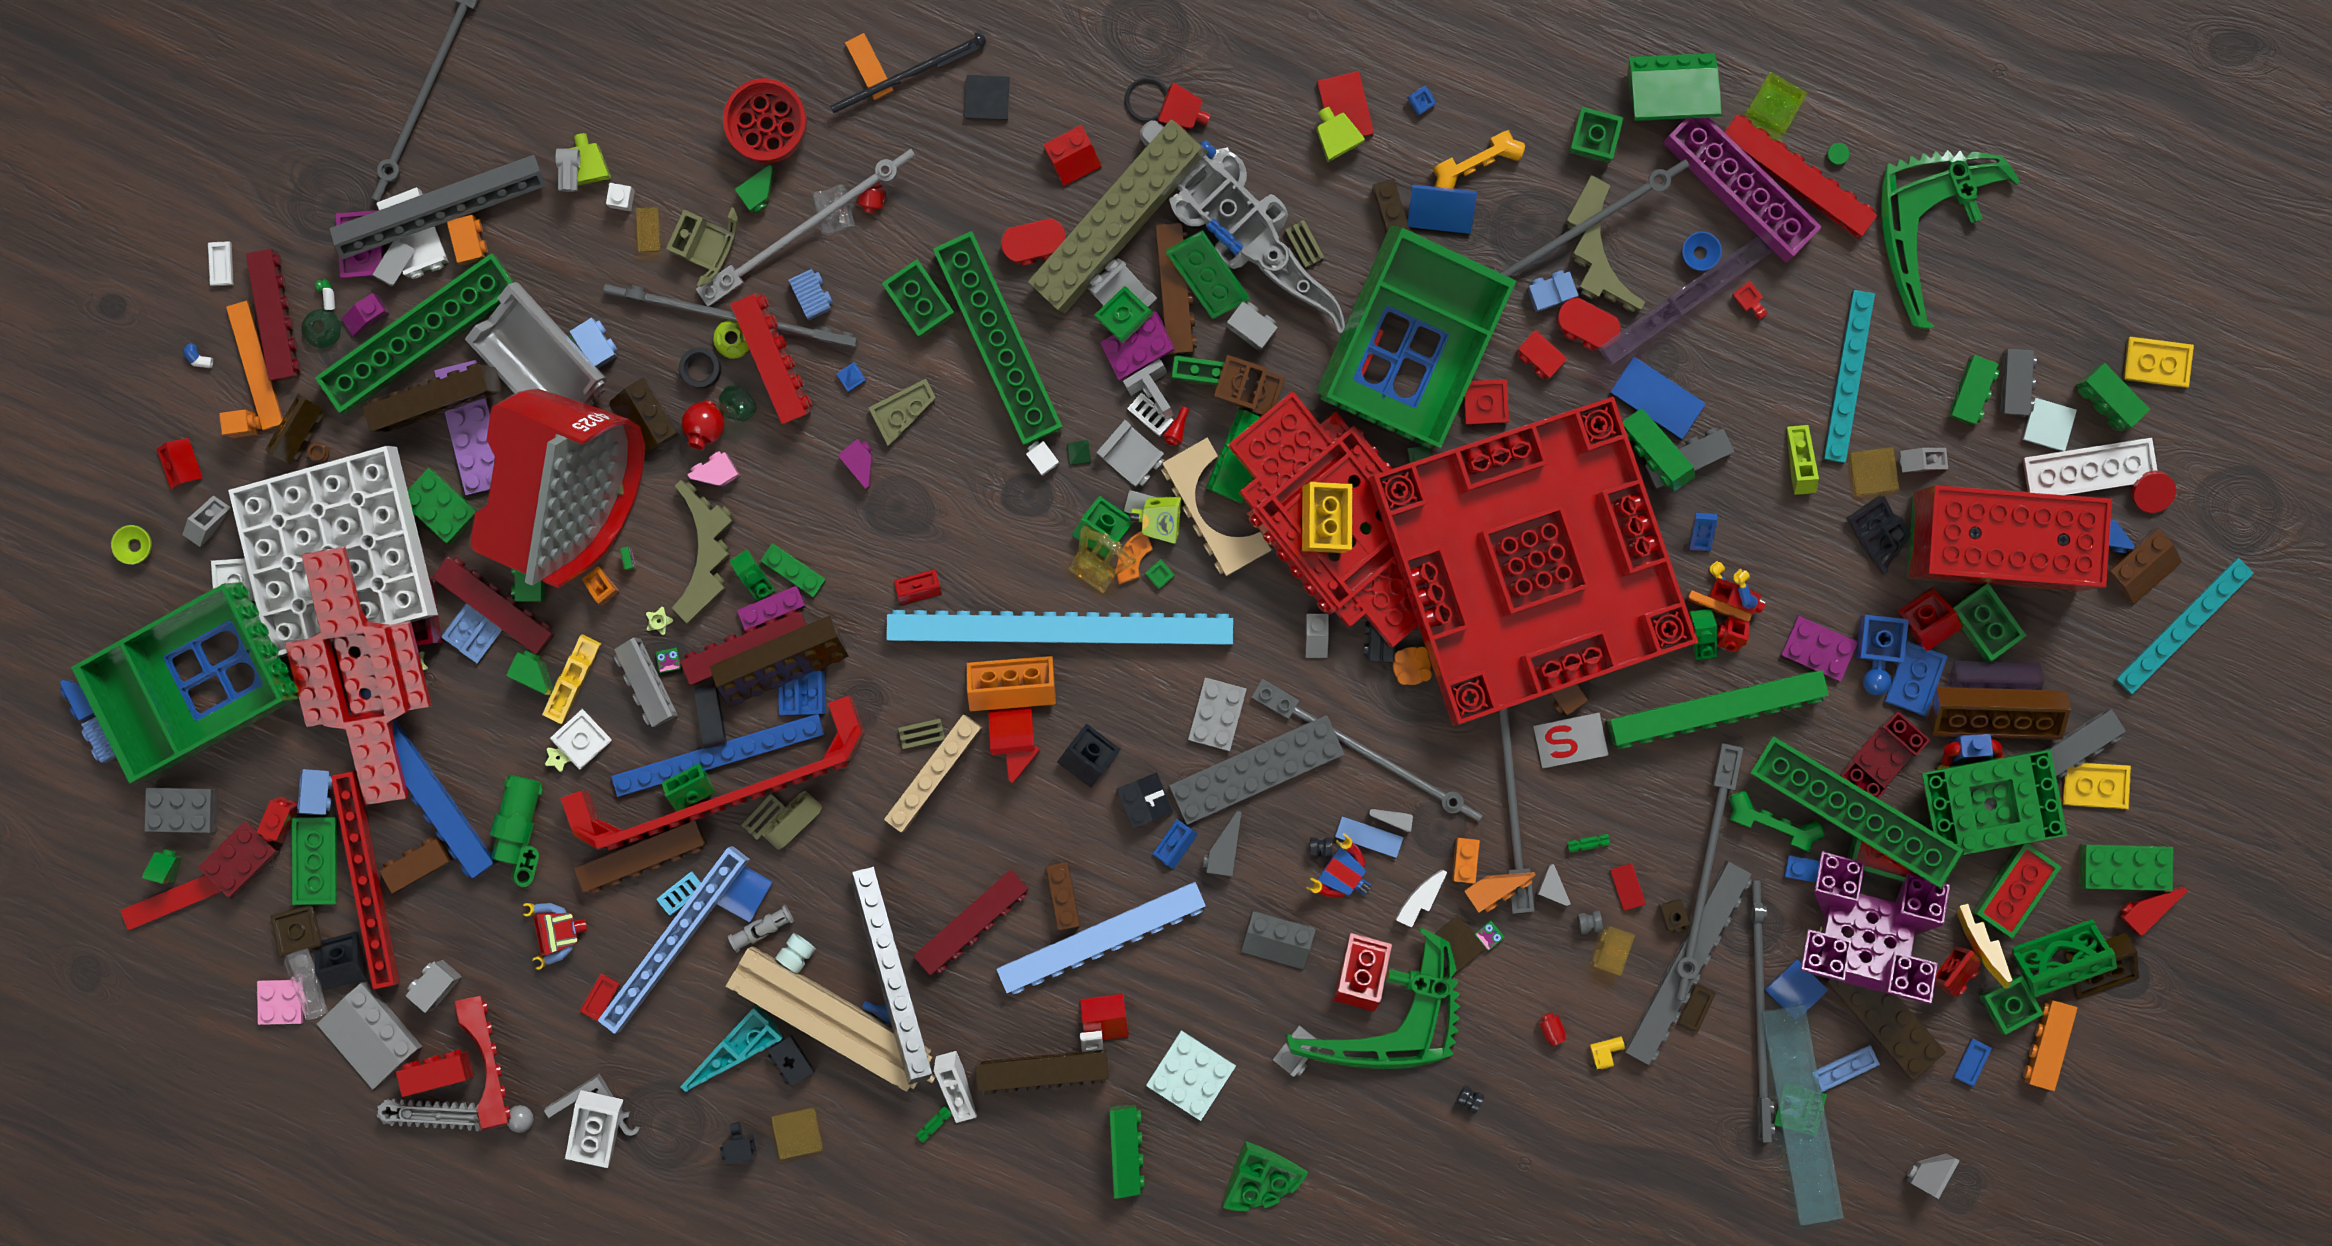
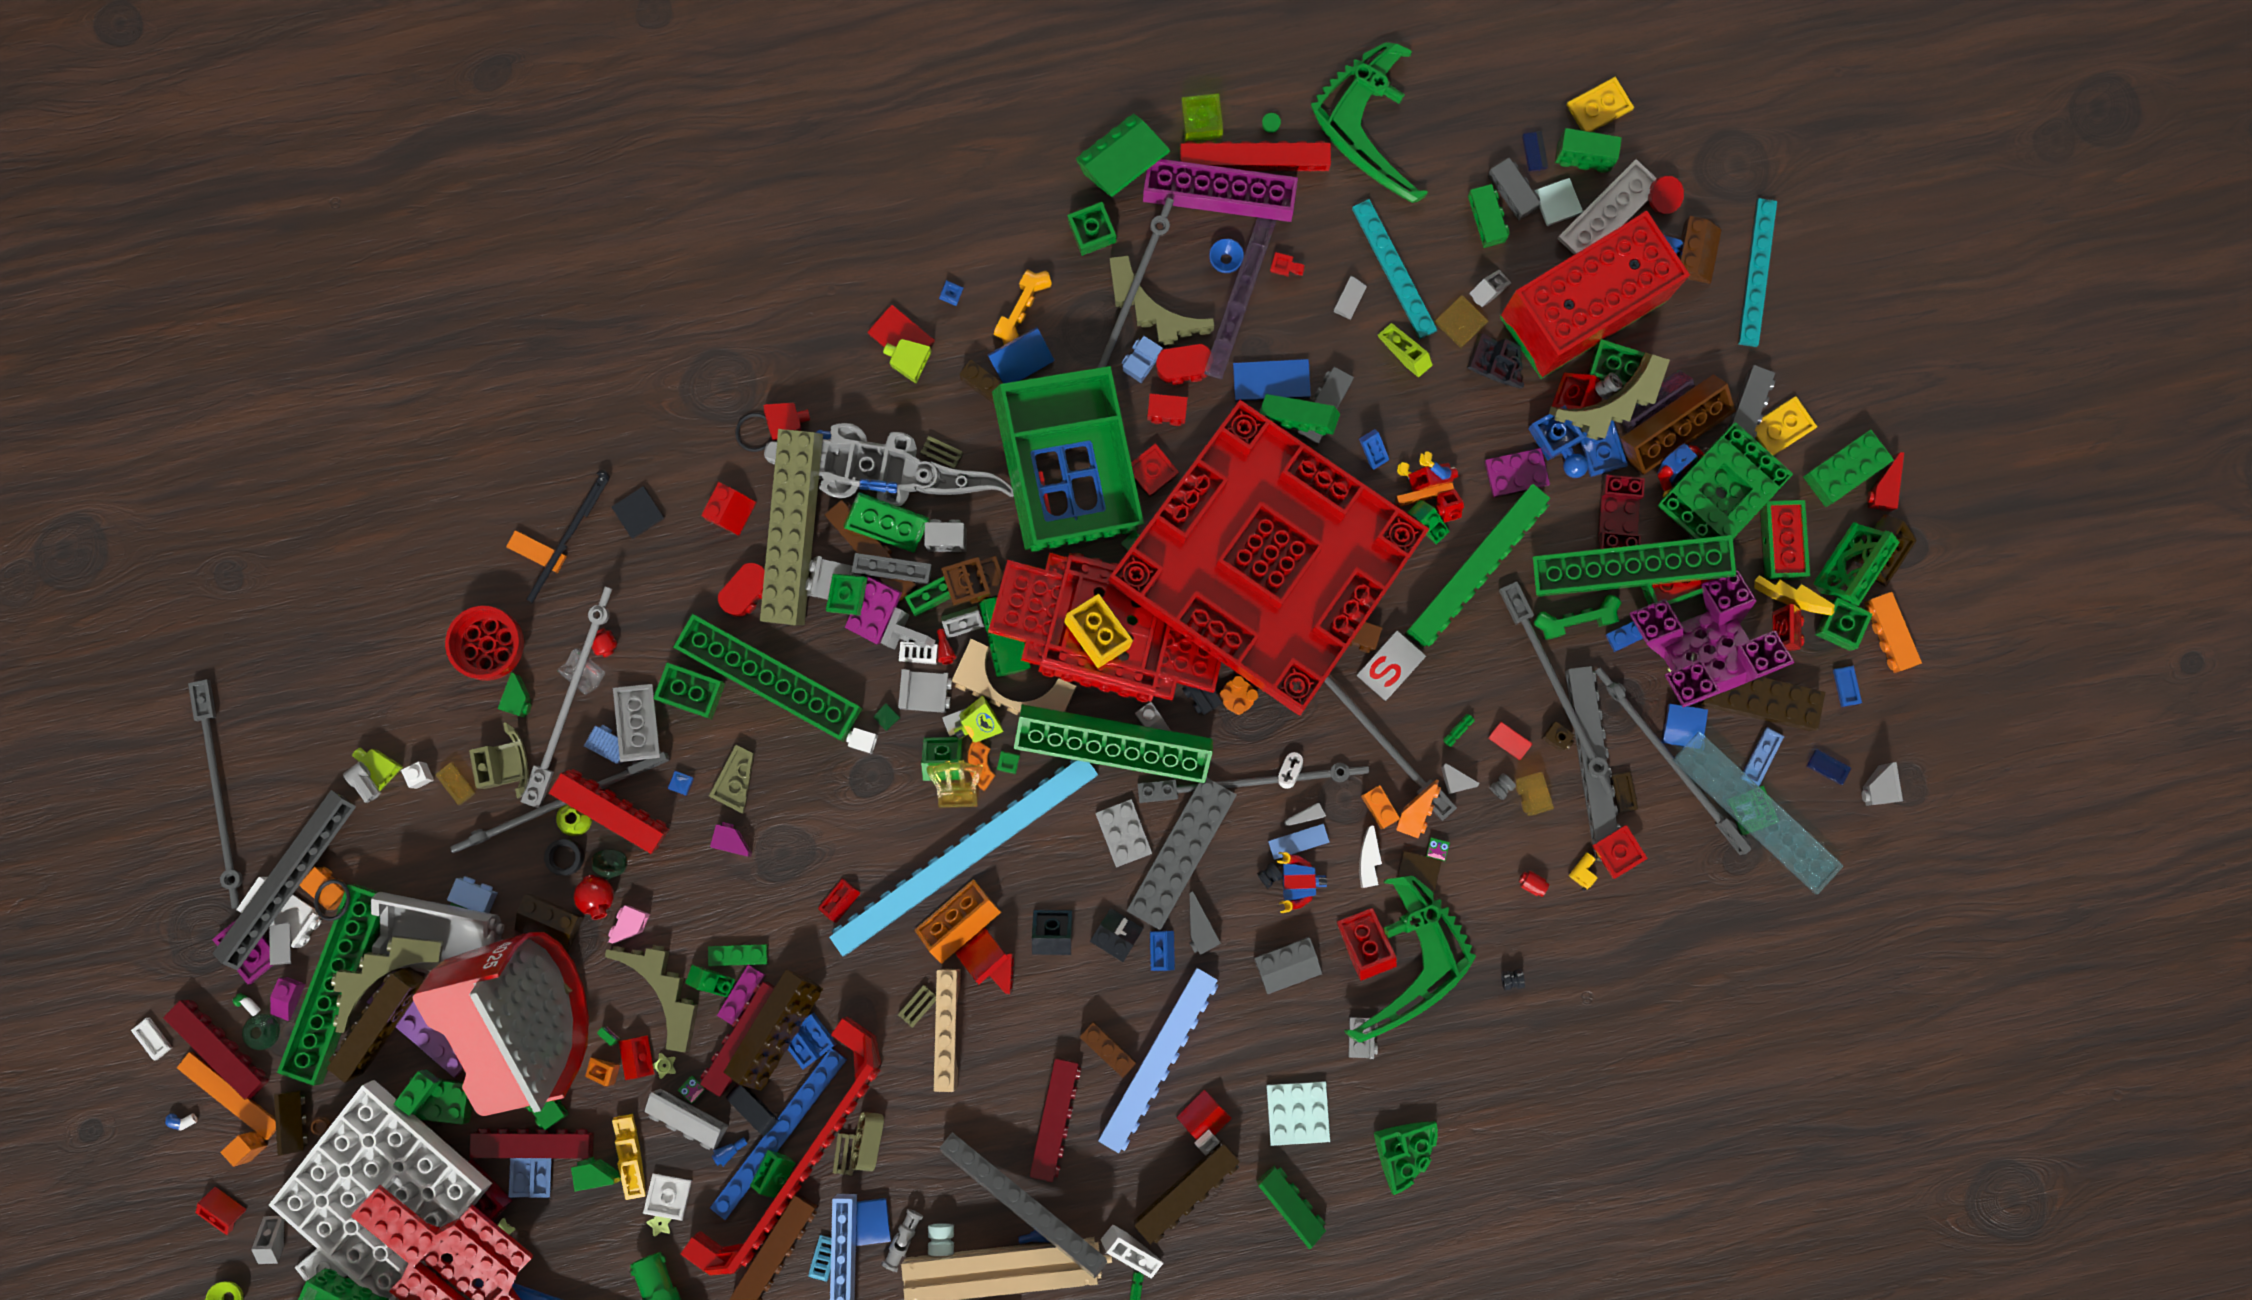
camera: 35 degrees left, 5 degrees down
(428, 486) = (417, 1092): none -> green brick
(455, 244) = (345, 907): none -> black tyre
(467, 346) = (354, 983): none -> olive arch
(638, 595) = (636, 1057): none -> red panel
(658, 738) = (725, 1153): none -> blue cone
(850, 293) = (636, 723): none -> light grey plate
(1182, 321) = (891, 568): none -> dark grey plate
(1210, 414) = (962, 622): none -> light grey slope
(1266, 627) = (1113, 743): none -> green brick
(1411, 771) = (1286, 768): none -> white beam
(1650, 1057) = (1619, 851): none -> red plate
(1787, 374) = (1350, 298): none -> light grey slope
(1899, 1121) = (1828, 767): none -> clear blue tile
(1960, 631) = (1606, 387): none -> dark grey wheel
(1987, 656) = (1640, 389): none -> olive arch
(2064, 361) = (1535, 151): none -> clear blue tile

